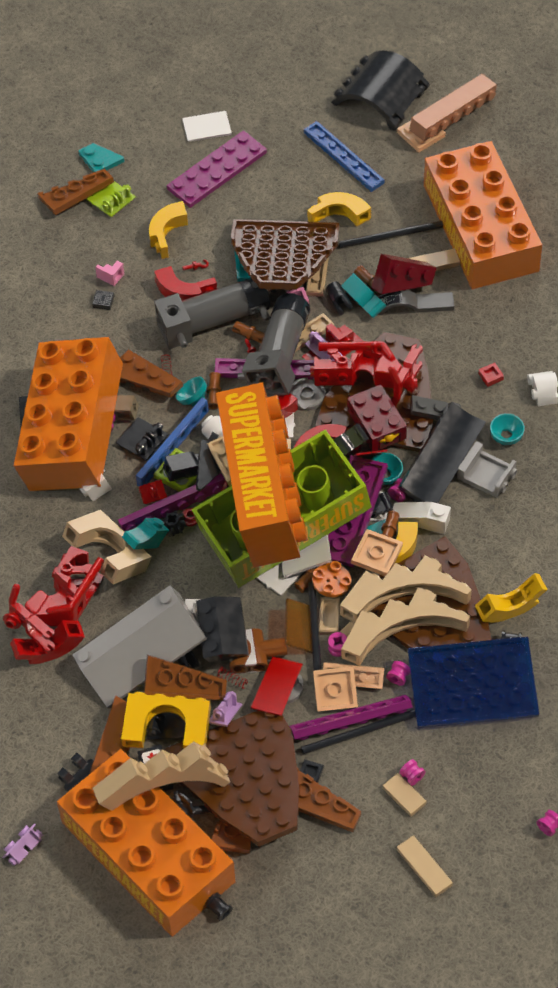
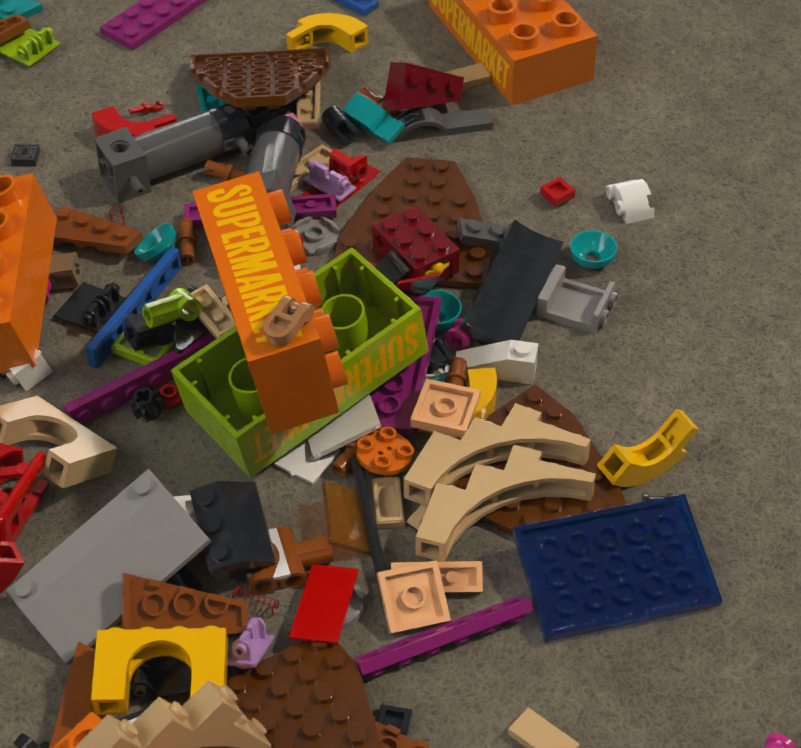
camera: 10 degrees left, 10 degrees down
(109, 273) = (34, 125): bright pink panel -> none
(147, 534) = (108, 420): teal arch -> none
(152, 492) = (112, 366): red bracket -> none
(163, 222) = (102, 62): yellow arch -> none
(202, 452) = (174, 307): none -> lime piece
(210, 425) = (191, 276): white head -> none
(263, 510) = (281, 326): none -> medium nougat plate
(335, 649) = (407, 545): dark pink wheel -> none
(358, 731) = (456, 656): black piece -> none
(370, 357) = (391, 176): red piece -> none
(390, 234) = (395, 56): black piece -> none
(398, 673) = (503, 566): dark pink wheel -> none
(412, 772) = (550, 703): dark pink wheel -> none

